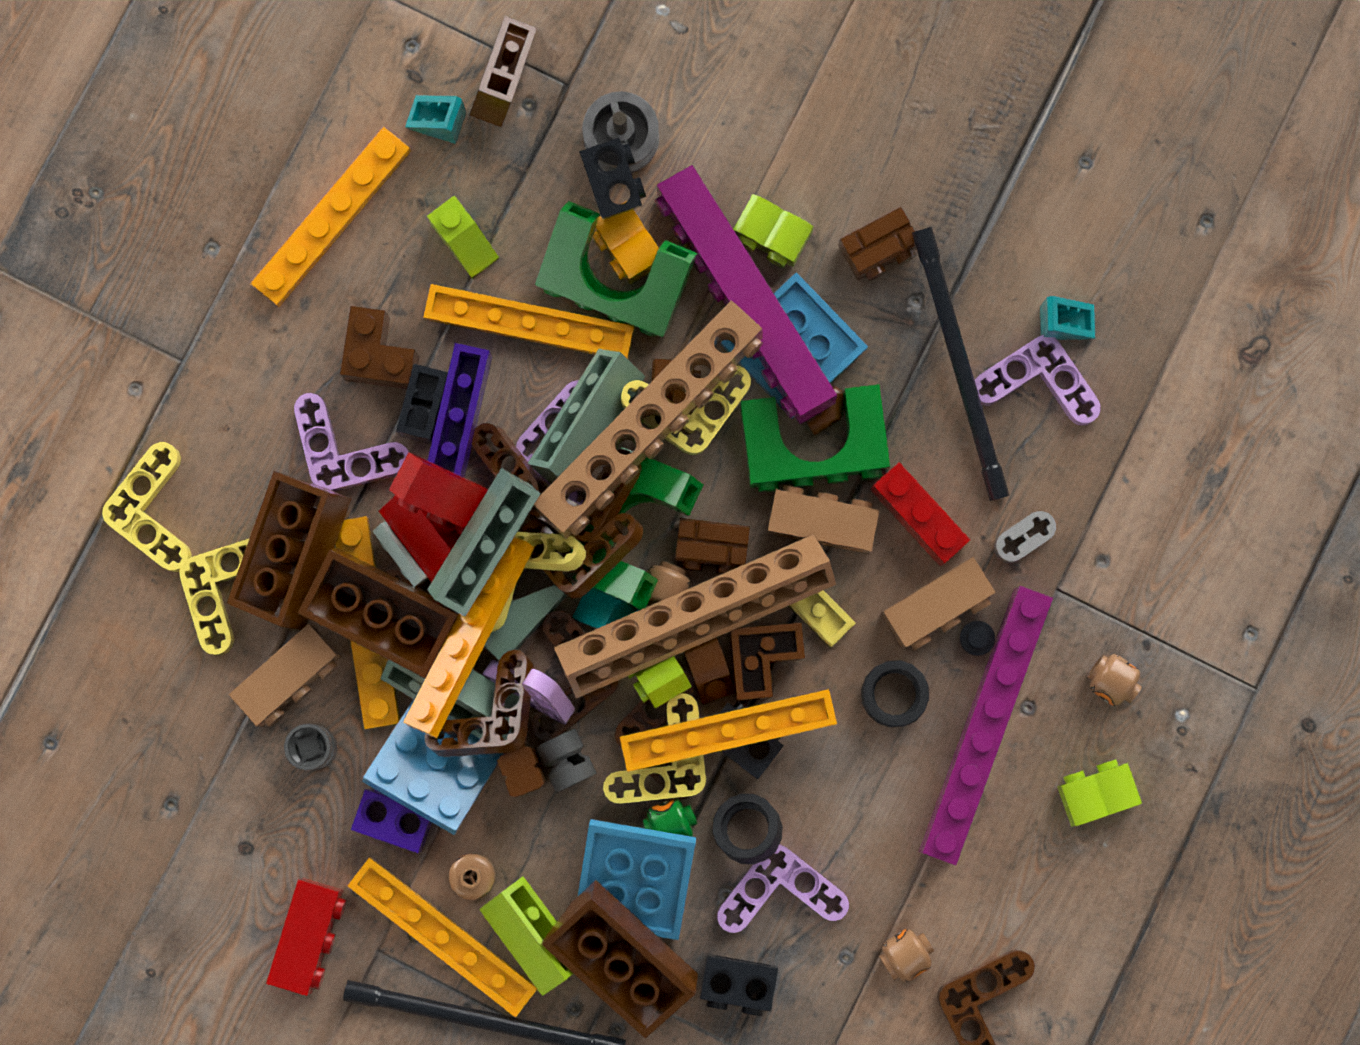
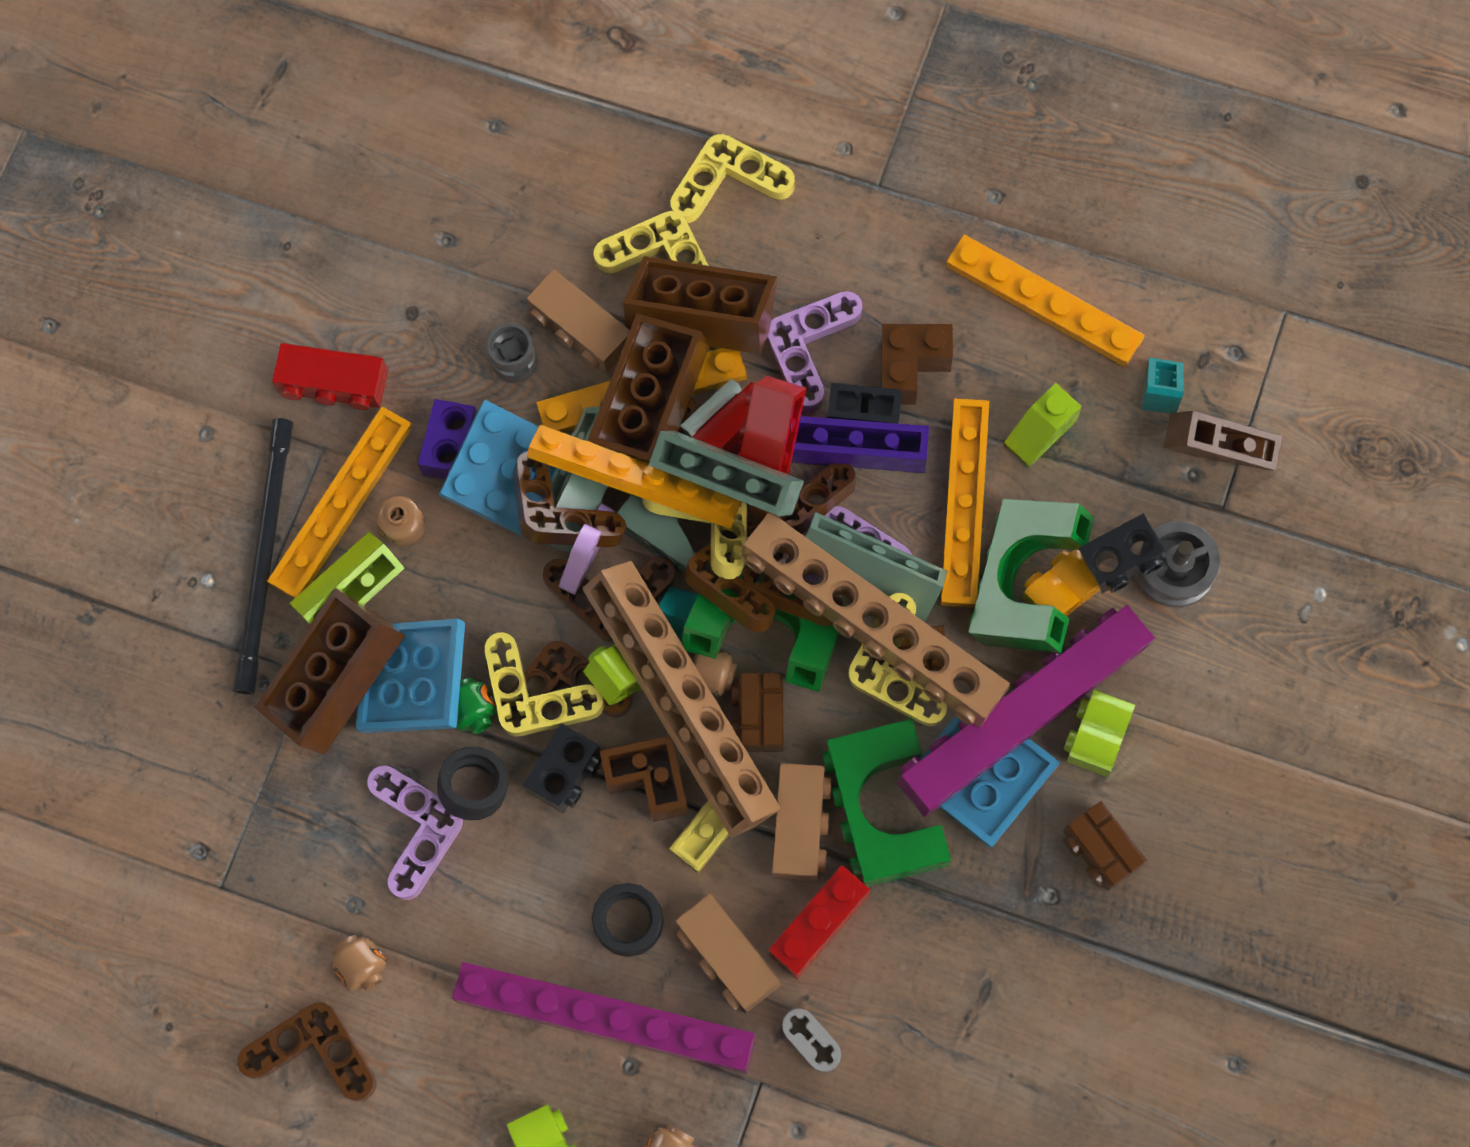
camera: 90 degrees right, 10 degrees down
(522, 771) = (508, 552): reddish brown brick -> none
(565, 760) = (535, 588): dark grey wheel -> none
(709, 671) = (630, 722): reddish brown brick -> none
(728, 730) = (567, 746): light orange plate -> none
(740, 973) = (327, 794): black brick -> none
(829, 416) = (913, 817): reddish brown arm -> none
(930, 259) = (880, 994): black piece -> none
(977, 638) = (697, 1000): black plate -> none
(1036, 366) = (997, 1030): lavender beam -> none
(1067, 319) = (1054, 1060): teal slope -> none

